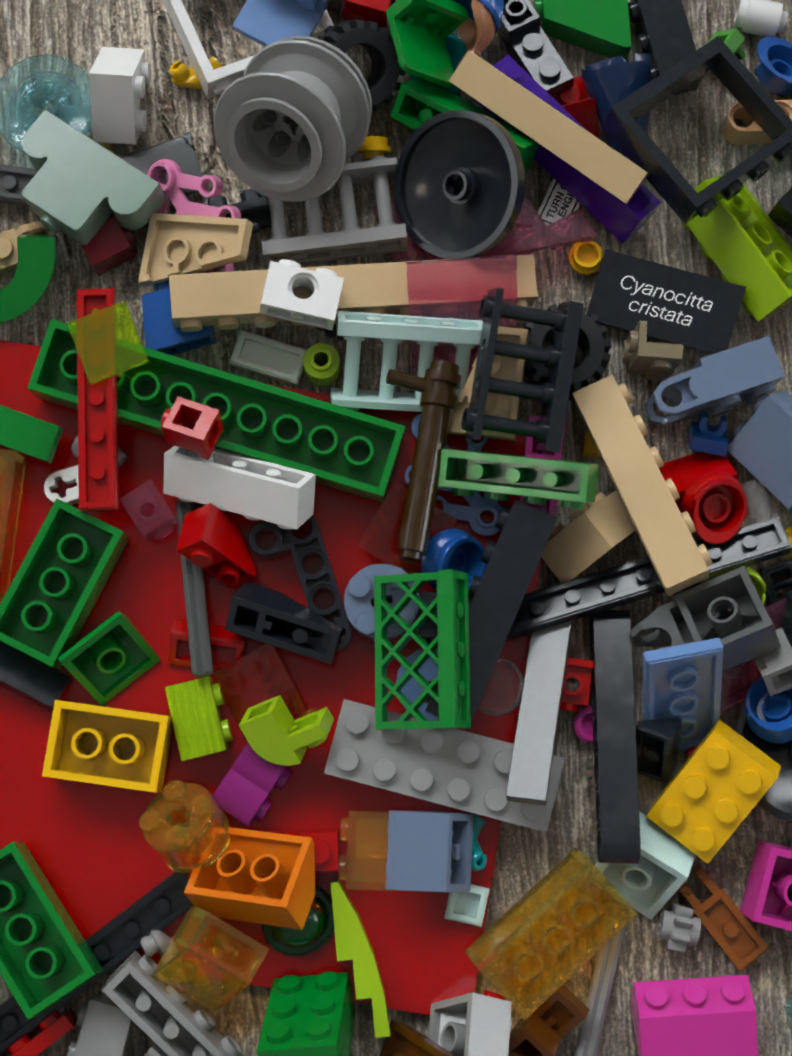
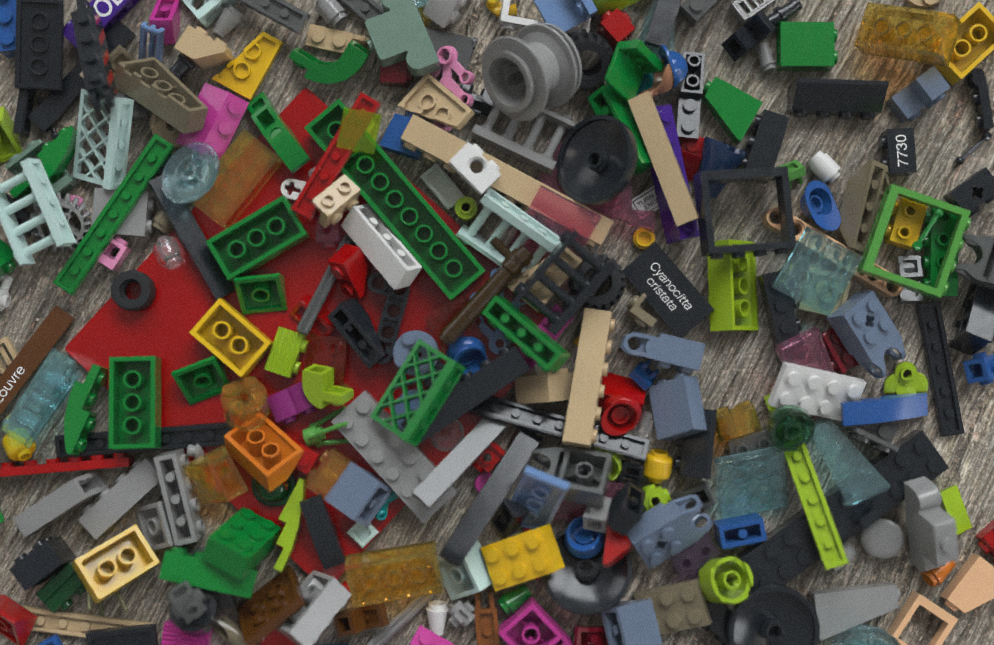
camera: 40 degrees right, 5 degrees up
(101, 833) = (201, 379): none -> green slope
(137, 458) = (336, 200): none -> tan bracket
(192, 426) = (376, 195): red brick -> none
(312, 807) = (315, 433): none -> bright green plant
(374, 146) = (569, 109): yellow plate -> none
(412, 938) = (323, 531): none -> black slope
(646, 954) = (437, 616): none -> white cone
(736, 861) = (512, 600): none -> green cone

